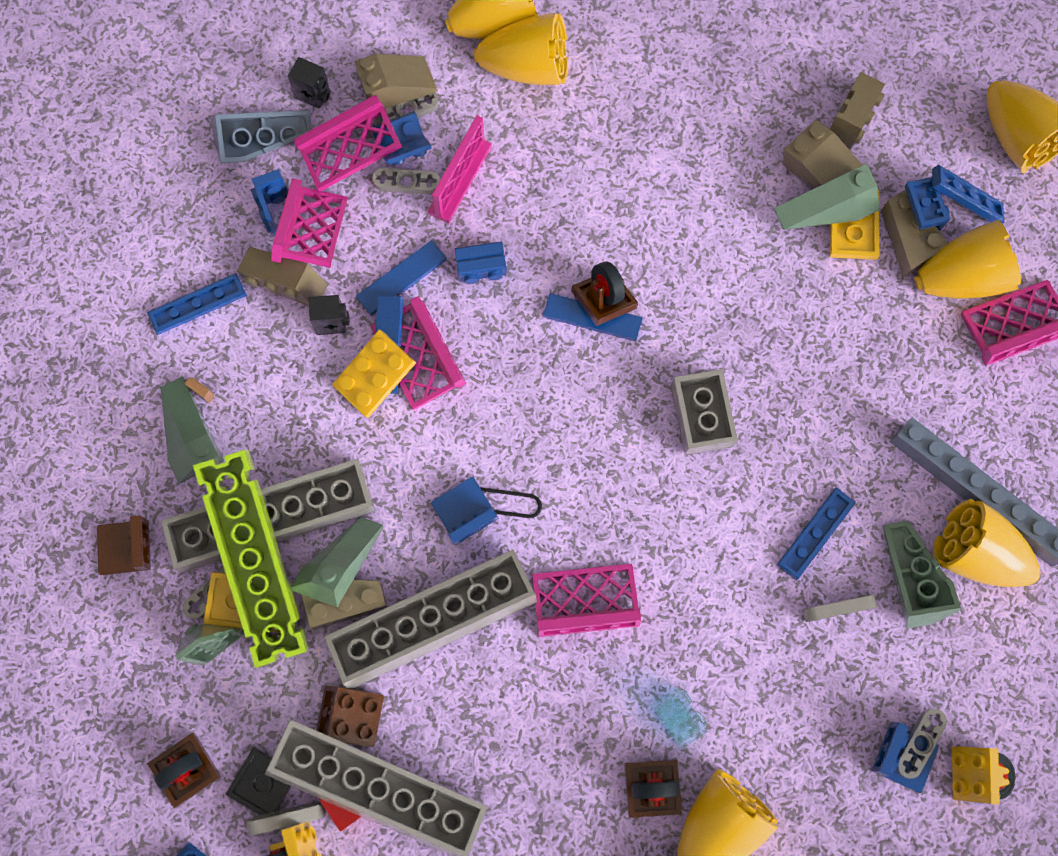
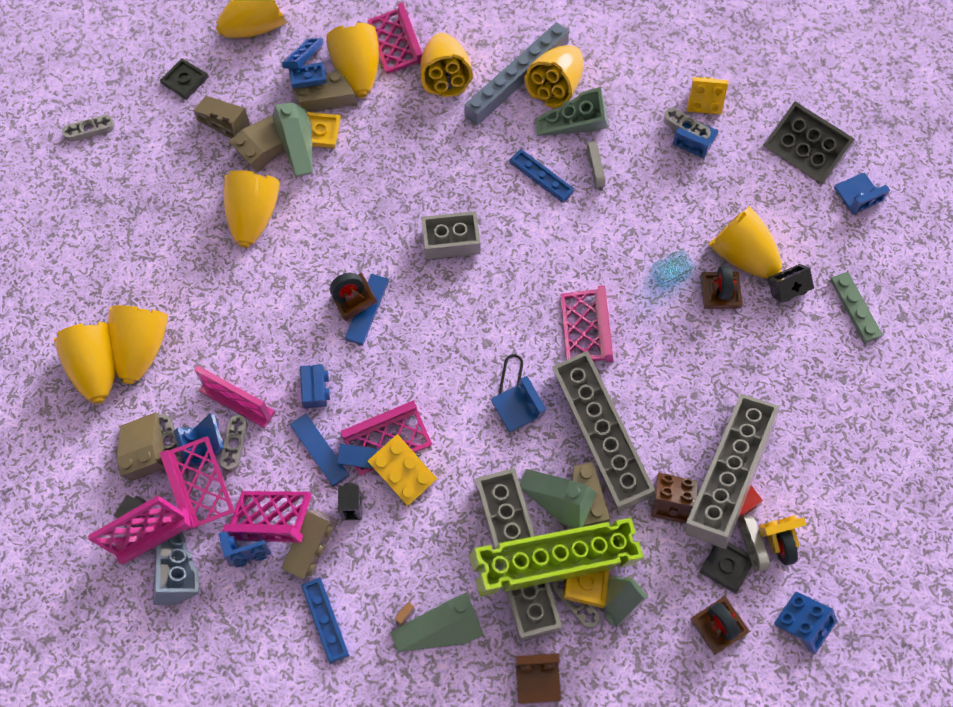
camera: 85 degrees left, 10 degrees down
(285, 92) = (143, 537): none -> dark pink fence
(722, 156) = (248, 204): none -> yellow cylinder
(916, 58) = (184, 78): none -> pearl dark grey tile
(984, 385) = (442, 55): none -> yellow cylinder

